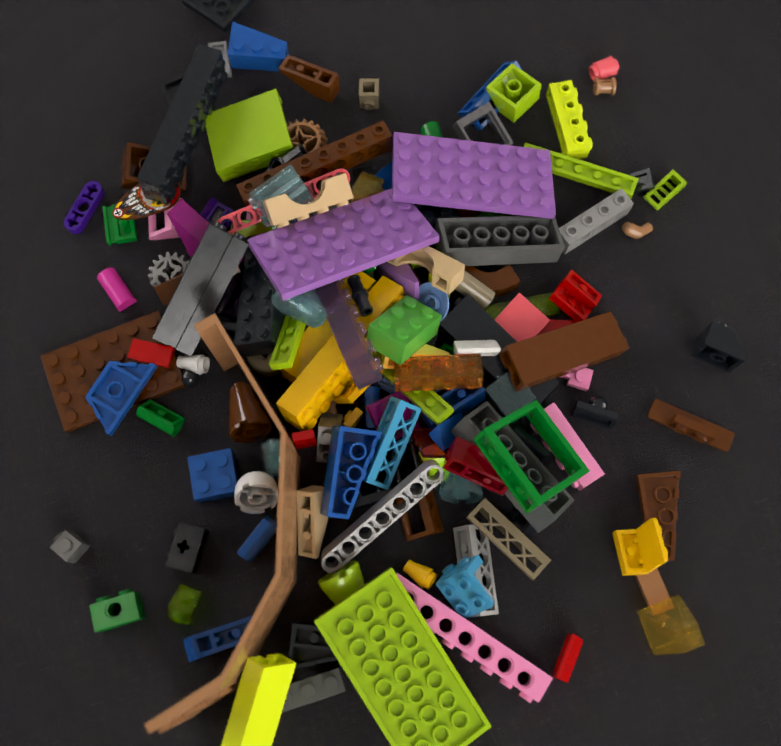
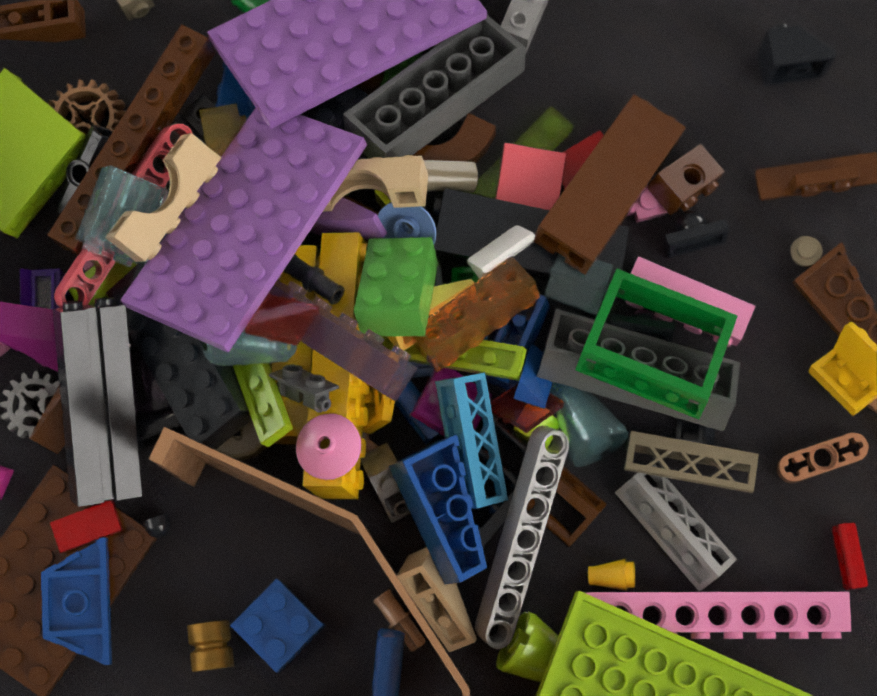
camera: 30 degrees left, 5 degrees up
(160, 417) = (156, 599): green brick -> none
(170, 462) = (210, 645): none -> pearl gold wheel
(196, 363) = (154, 501): white cone -> none
(246, 415) = (265, 522): reddish brown cone -> none
(256, 492) = (346, 611): white cylinder -> none
(271, 456) = (341, 552): clear light blue slope -> none
(304, 439) = (363, 503): red tile -> none
(308, 398) = (341, 453): none -> bright pink dish
(314, 350) = (304, 386): none -> dark grey hinge
(325, 302) = (282, 319): none -> clear red piece
(352, 418) = (402, 440): yellow plate -> none
(463, 588) = (676, 557): dark azure bracket -> none
(470, 463) = (588, 401): dark red slope -> none
(575, 296) = (577, 102): red slope -> none
(605, 587) = (841, 442): none -> nougat beam
(610, 377) = (672, 185): none -> reddish brown brick
(655, 463) = (806, 251): none -> dark tan plate

